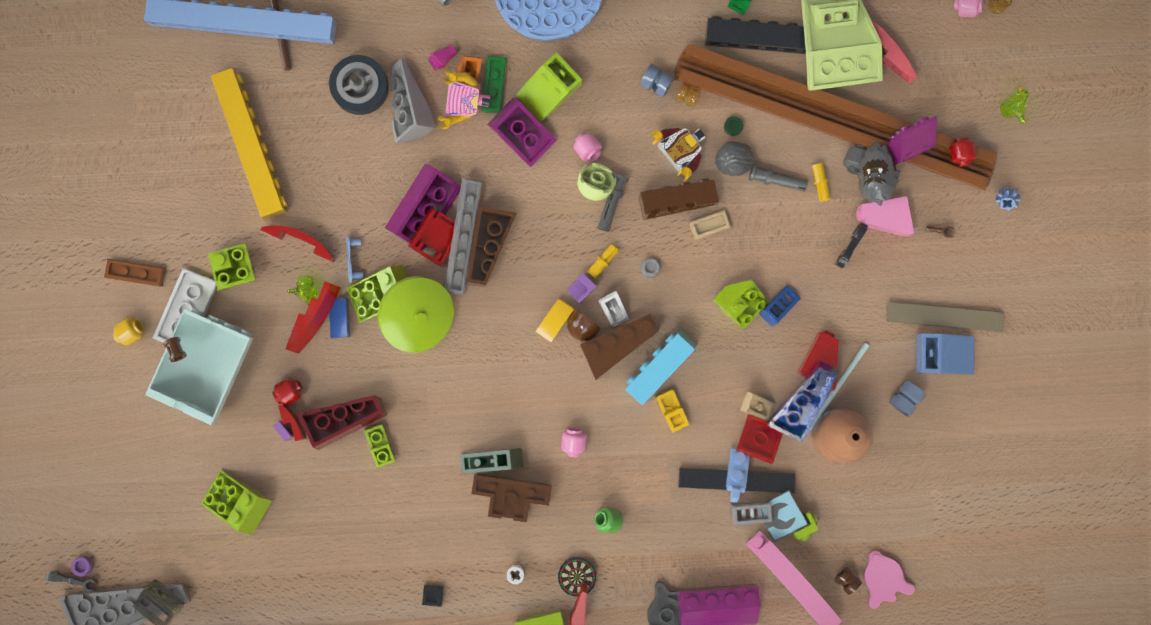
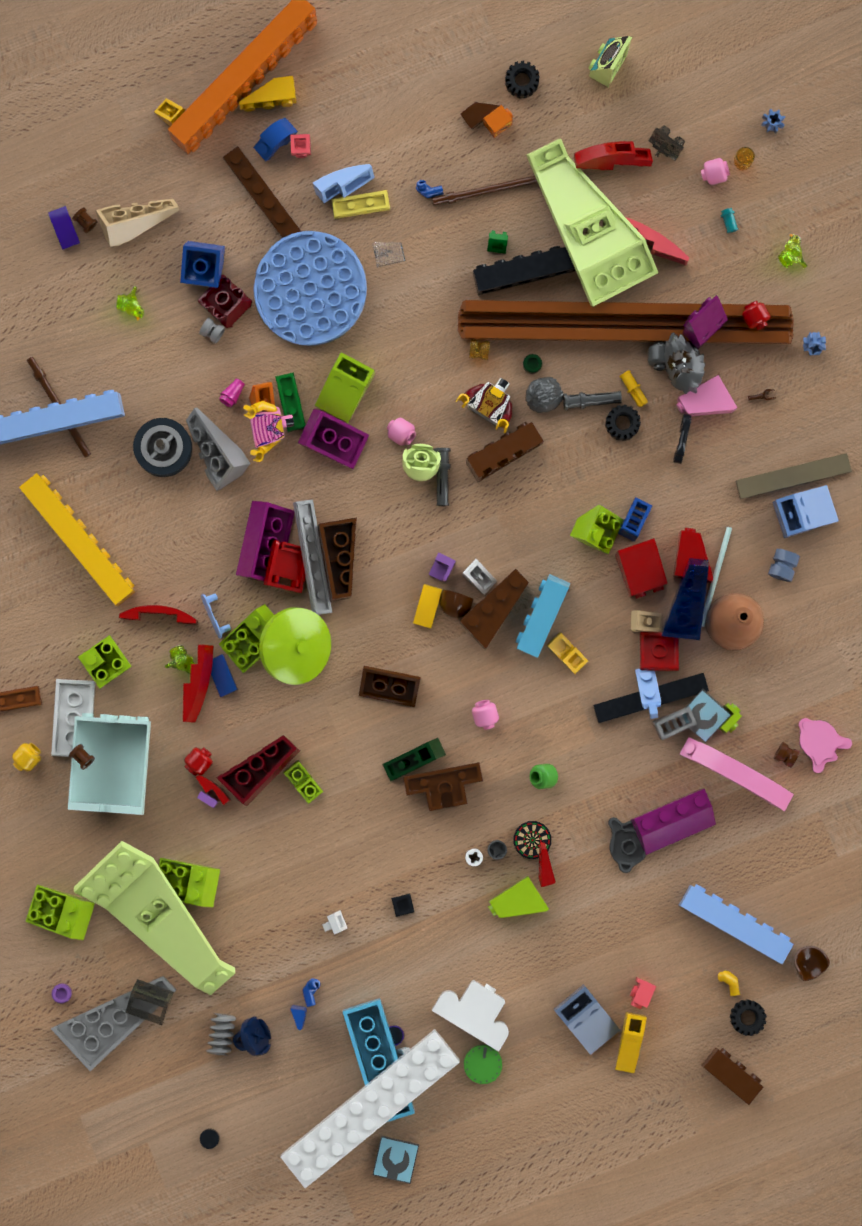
camera: 20 degrees left, 0 degrees up
(57, 577) = (36, 1012): dark grey piece -> none
(107, 489) = (60, 912): none -> lime slope
(188, 507) = (130, 889): none -> yellowish green wing
(362, 591) = (335, 922): none -> white tile
(492, 383) = (389, 686): none -> reddish brown slope
(540, 574) = (497, 849): none -> dark grey wheel
(602, 261) = (453, 535): yellow axle -> none
(650, 268) = (500, 525): light grey tile -> none
(656, 80) = (444, 345): sand blue wheel -> none
(709, 225) = (542, 465): tan tile -> none
(770, 354) = (641, 568): none -> red slope
(803, 199) = (623, 411): none -> black tyre
(966, 55) = (729, 220): none -> teal pin

